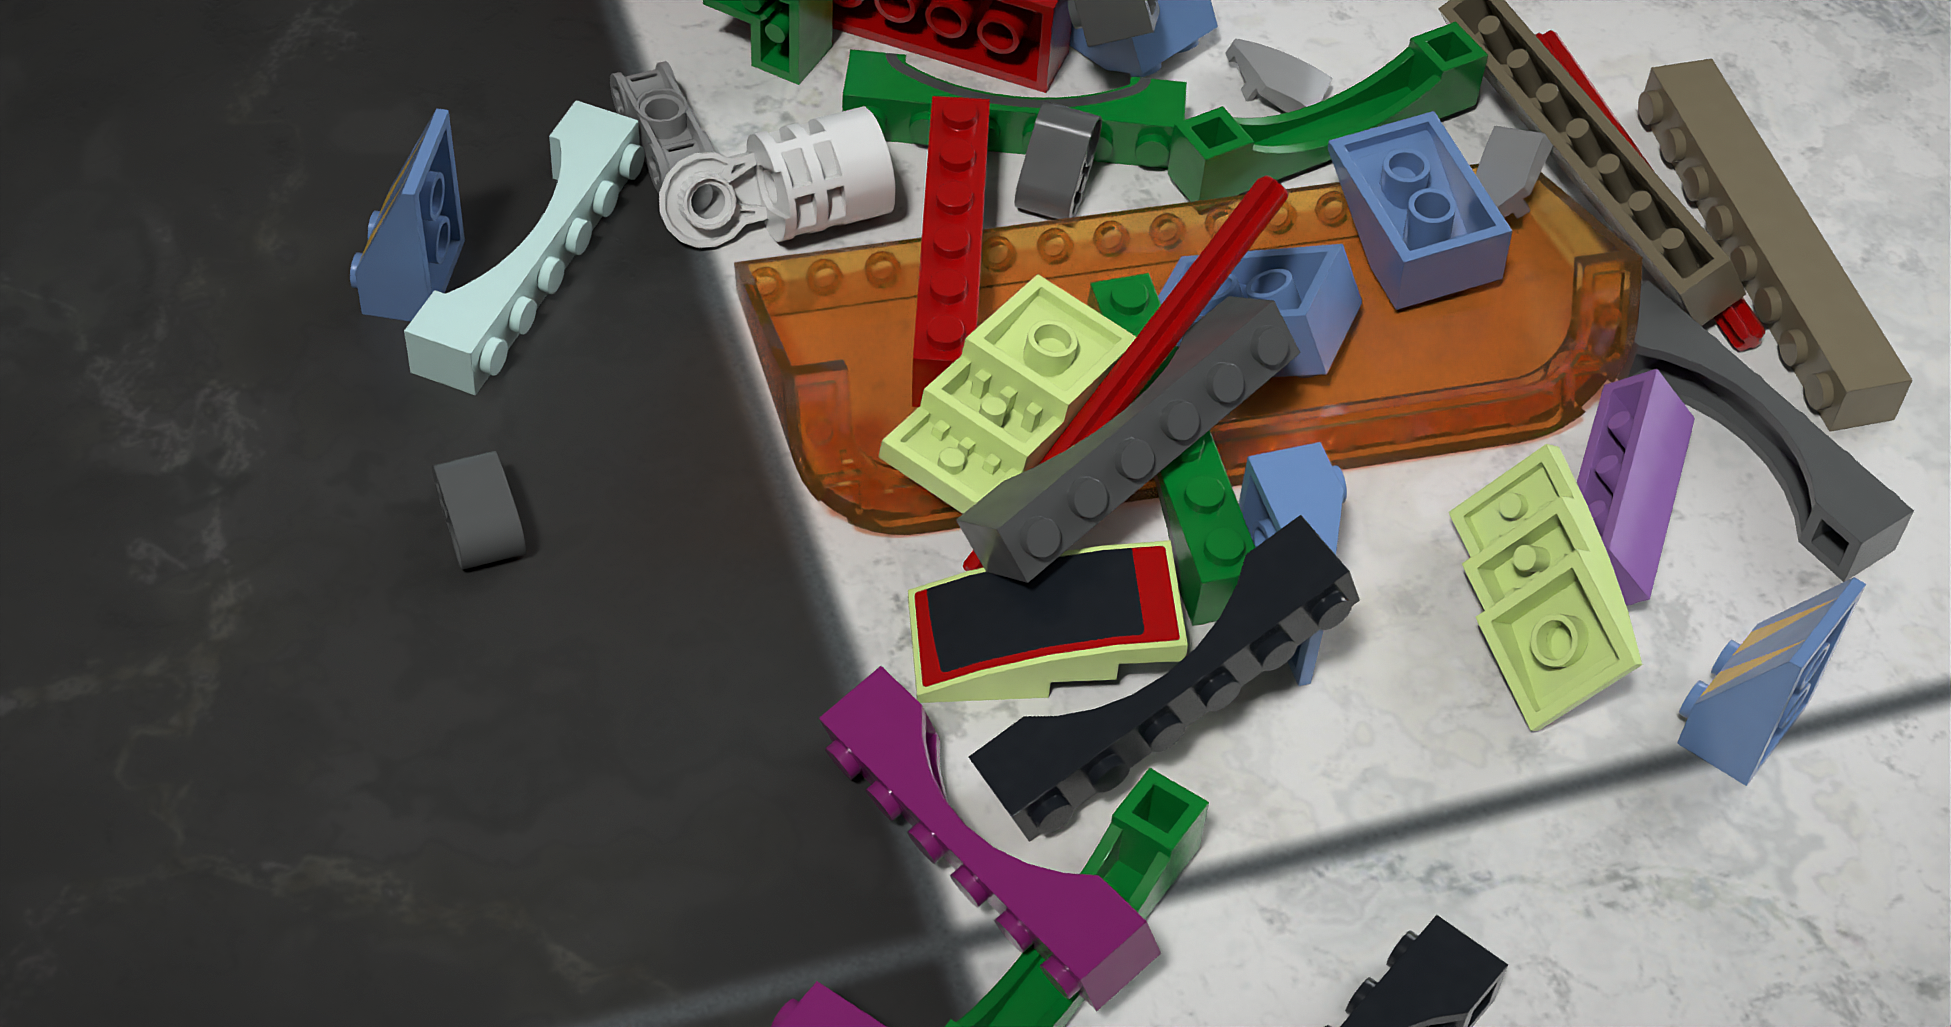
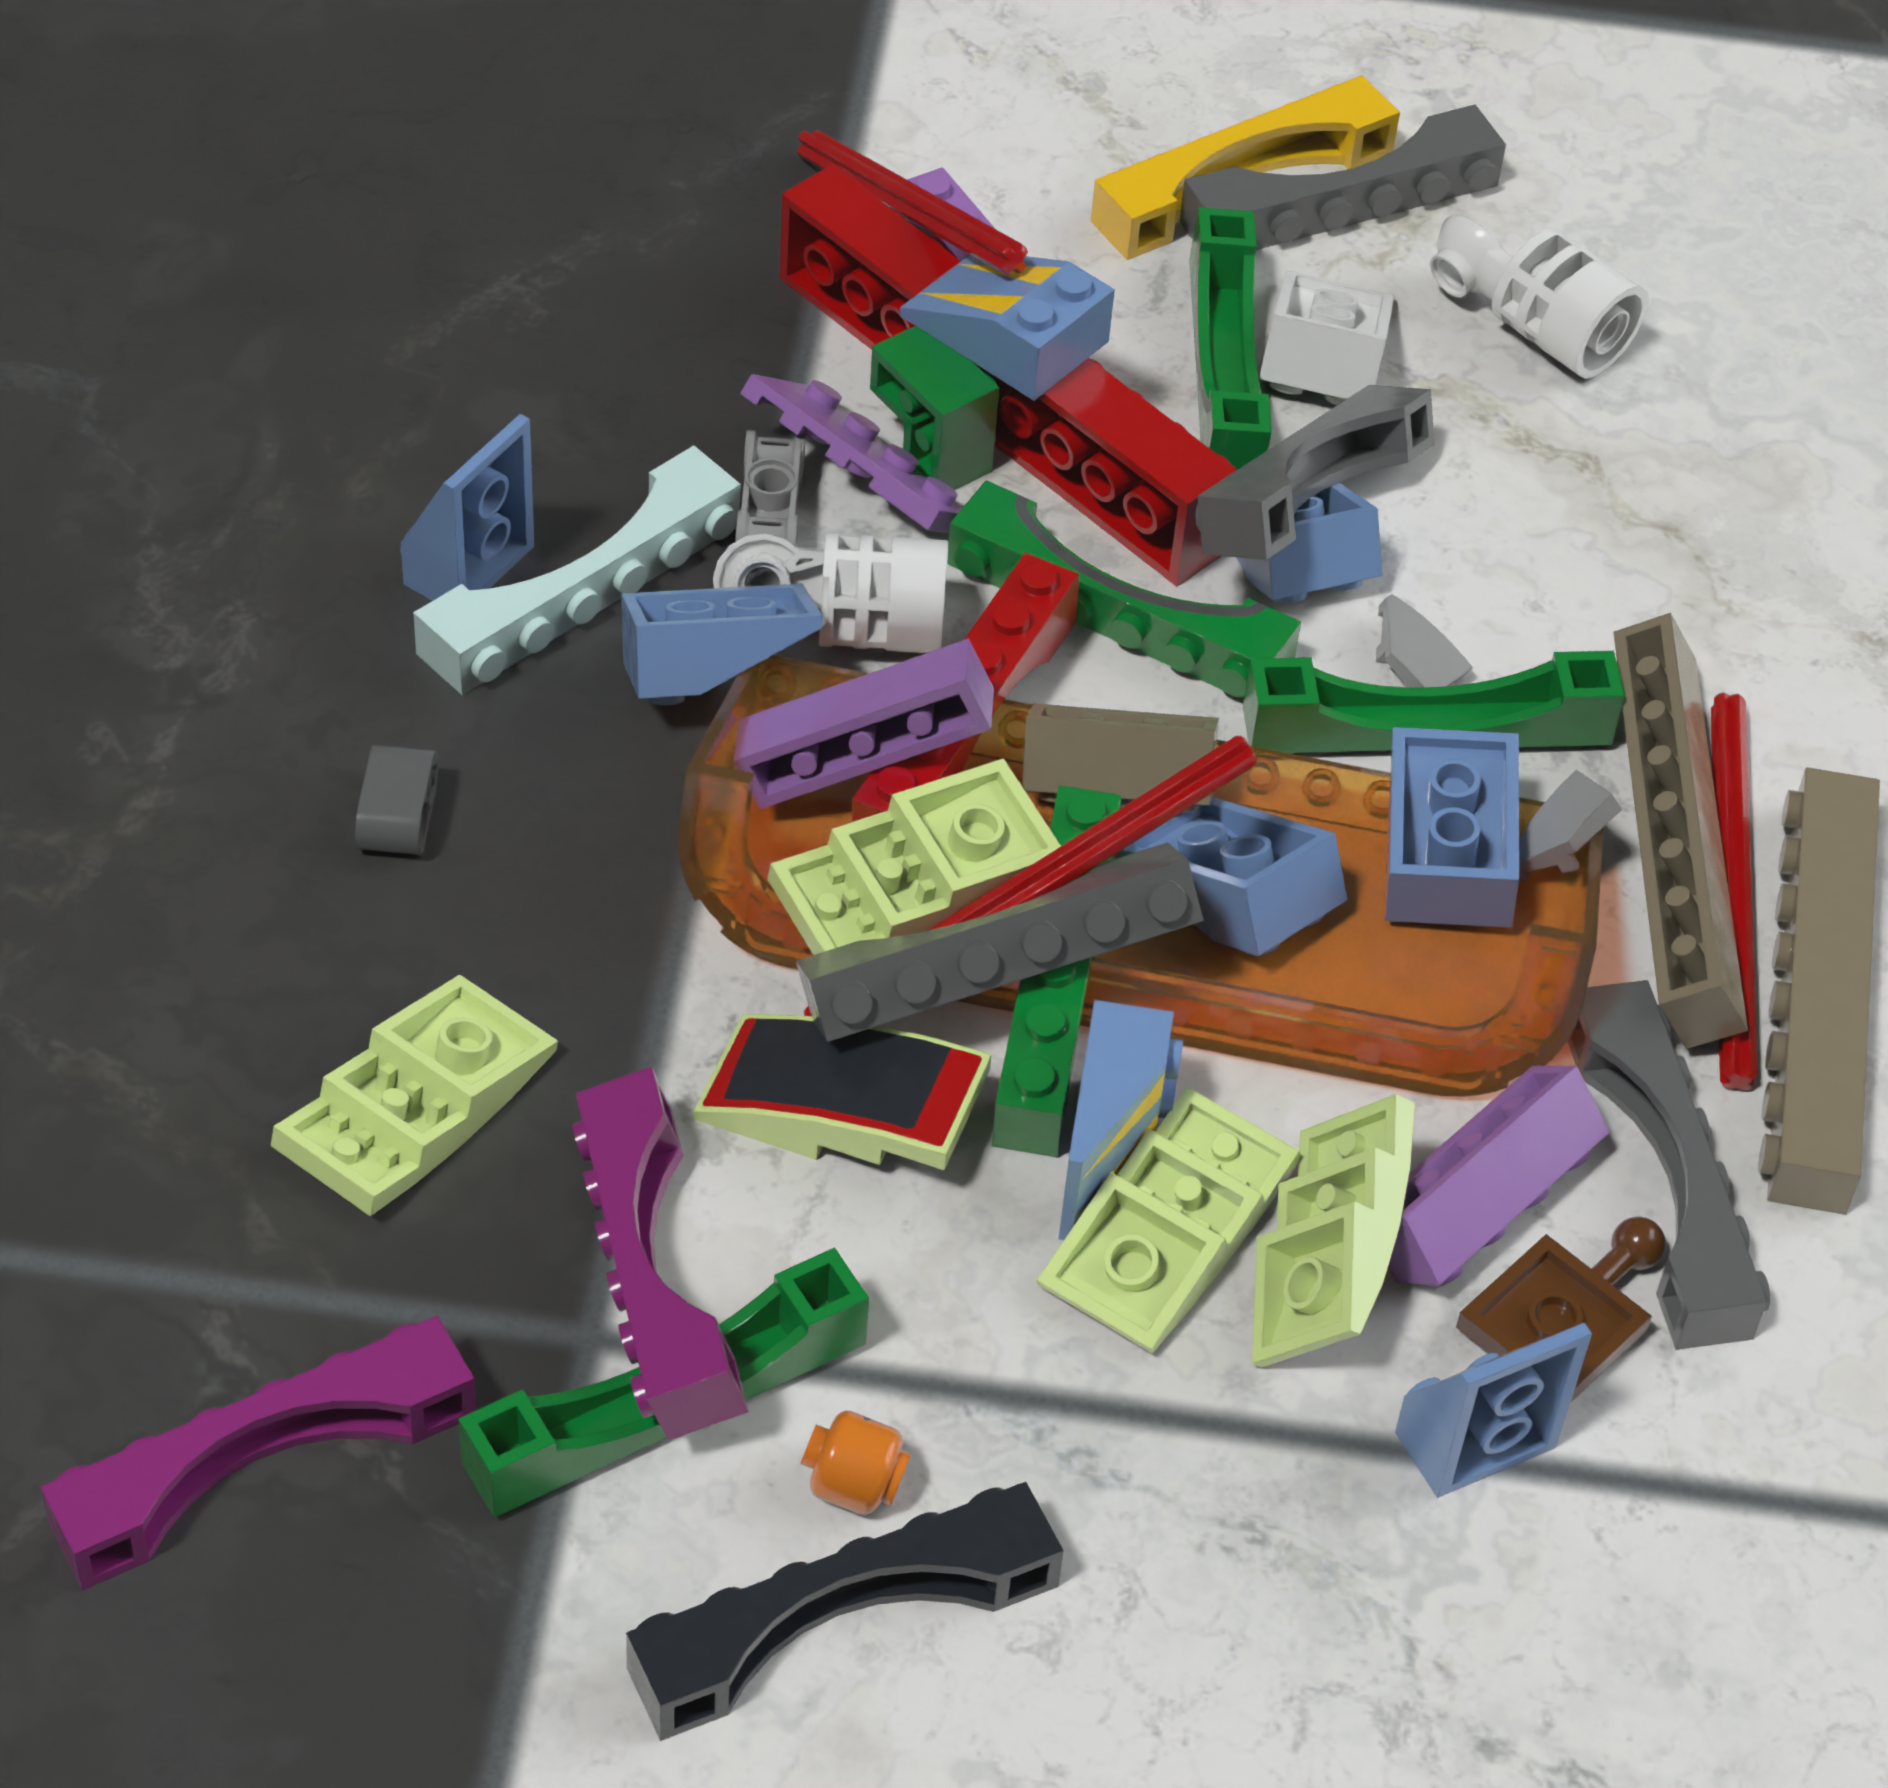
camera: 25 degrees right, 0 degrees up
(653, 781) = (413, 1094): none -> yellowish green slope
(663, 43) = (855, 446): none -> medium lavender wing
(691, 262) = (702, 637): none -> medium blue slope
(896, 282) = (865, 723): none -> medium lavender brick
(1056, 763) = (1026, 1140): black arch -> none
(1058, 161) = (1125, 656): dark grey beam -> none
(1114, 238) = (1111, 749): none -> dark tan brick
(1269, 961) = (855, 1462): none -> orange head
(1394, 656) = (1169, 1220): none -> yellowish green slope
(1741, 578) = (1556, 1291): none -> reddish brown plate

